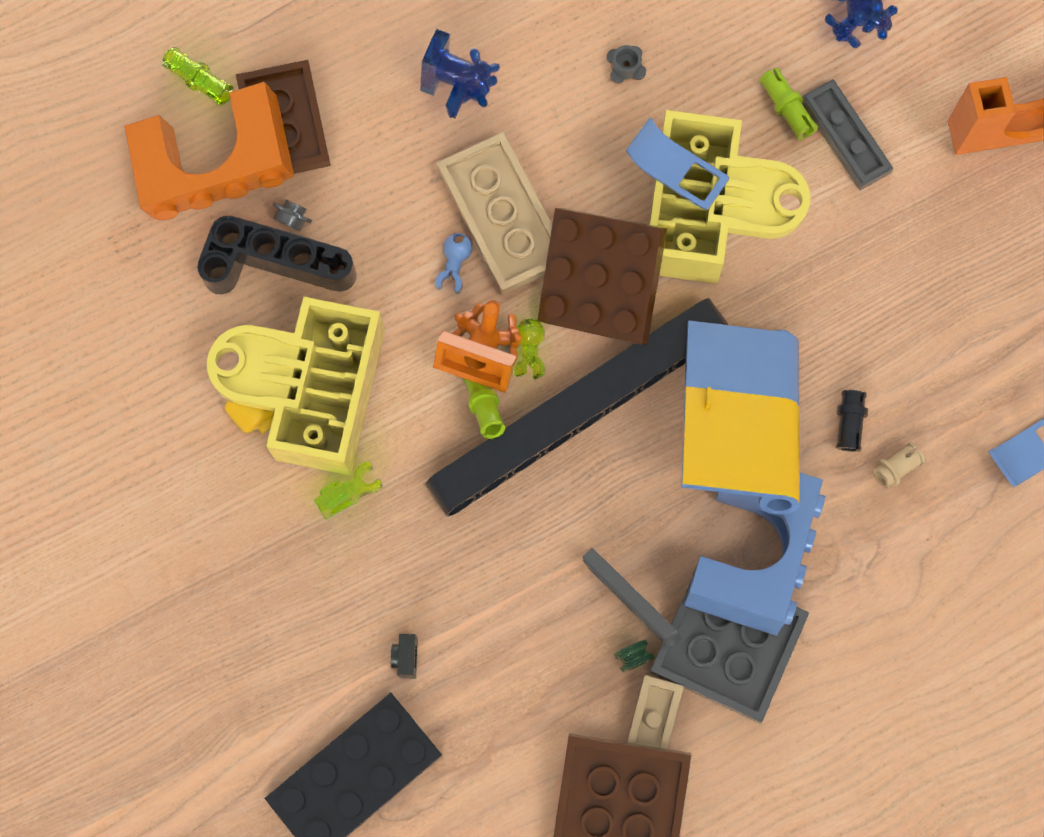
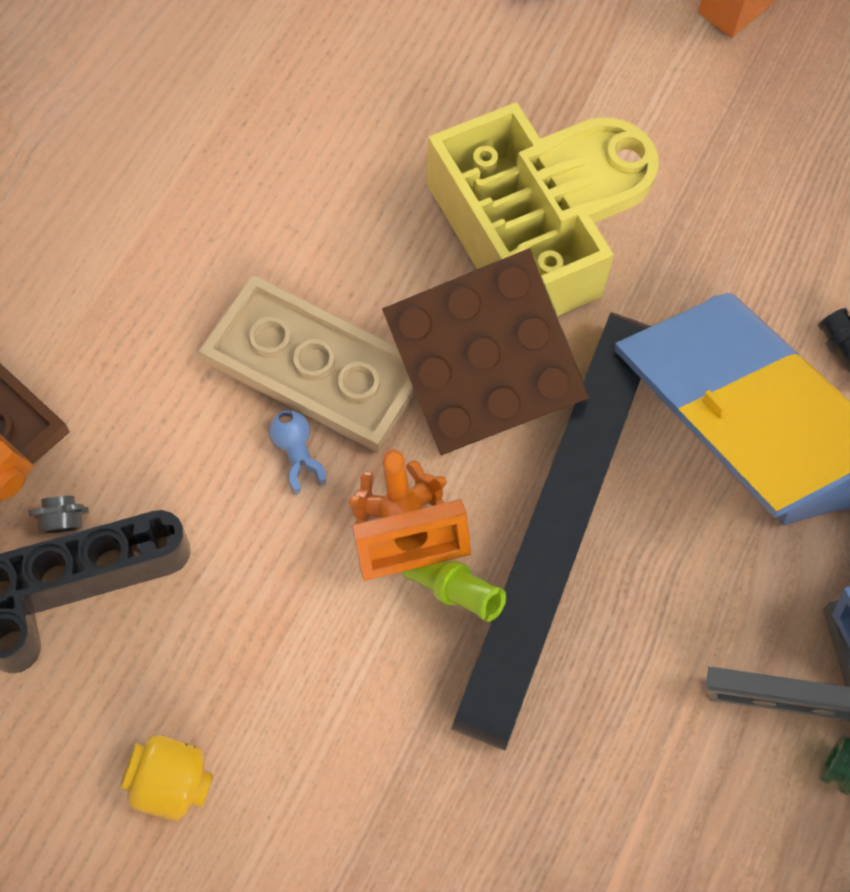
camera: 40 degrees left, 10 degrees down
(309, 378) = (220, 694): light yellow brick -> none
(338, 496) = (356, 817): clear neon green plate -> none
(467, 78) = (157, 239): clear blue piece -> none
(532, 336) = (451, 468): clear neon green arm -> none
(628, 54) = (335, 124): dark grey plate -> none
(670, 162) = (478, 184): medium blue piece -> none
(788, 104) = (534, 79): lime pin -> none
(846, 134) = (613, 78): dark grey tile -> none

